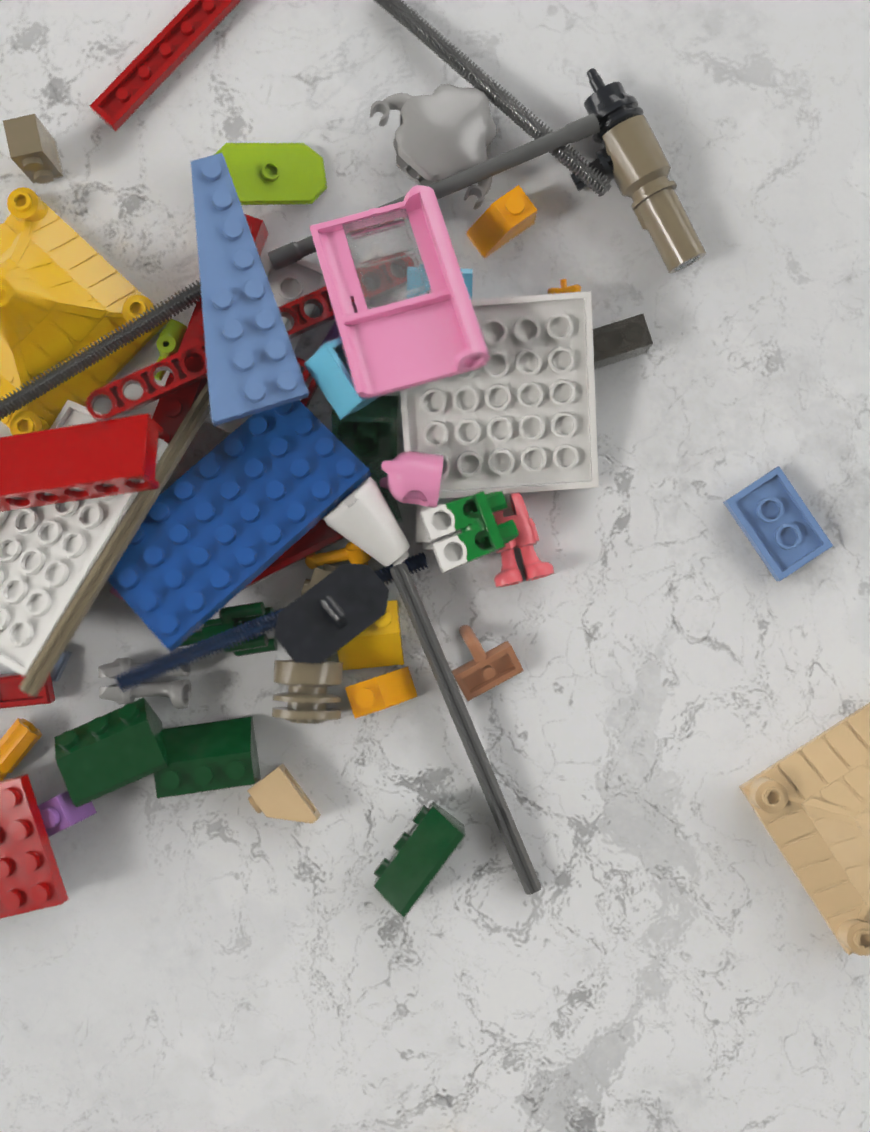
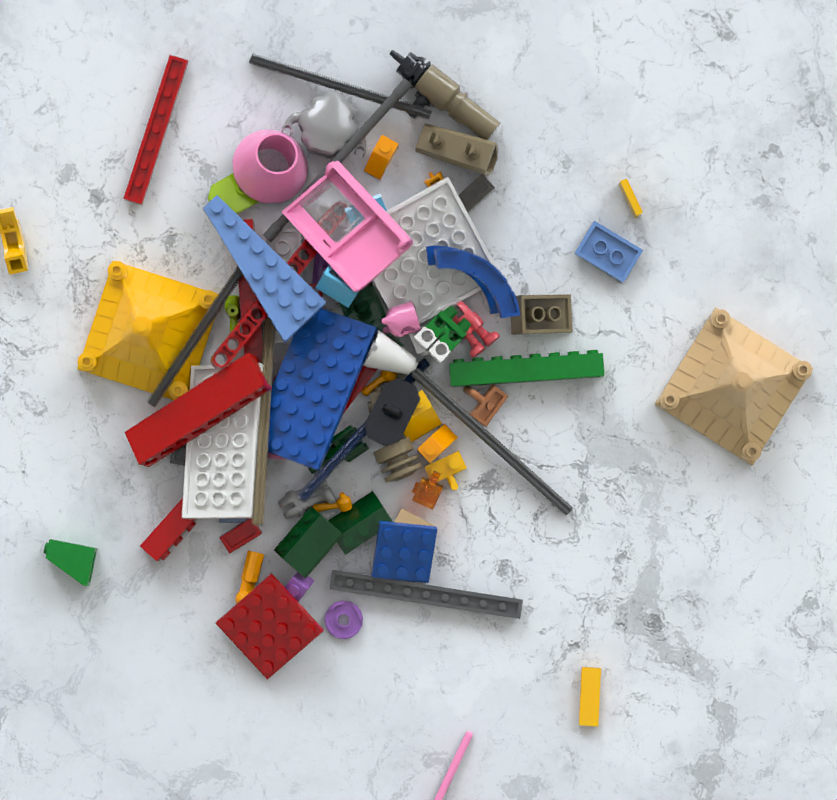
camera: 25 degrees left, 0 degrees up
(33, 148) = (107, 238): dark tan brick -> none
(132, 886) = (343, 631): none -> medium lavender tile
(196, 714) = (343, 503): none -> light orange piece
(250, 835) = (404, 551): none -> blue plate
(256, 915) = (426, 594): none -> dark grey plate
(316, 180) = (260, 182): none -> bright pink cone
(332, 758) = (427, 491): none -> clear orange brick
(377, 735) = (447, 467): none -> yellow plate
(418, 857) = (498, 520): dark green slope -> none
(572, 644) = (526, 369): none -> green brick
(576, 464) = (490, 280): none -> blue fence
(624, 262) = (458, 149): none -> dark tan piece
(631, 569) = (543, 314): none -> dark tan slope
(849, 458) = (630, 198): none -> yellow tile

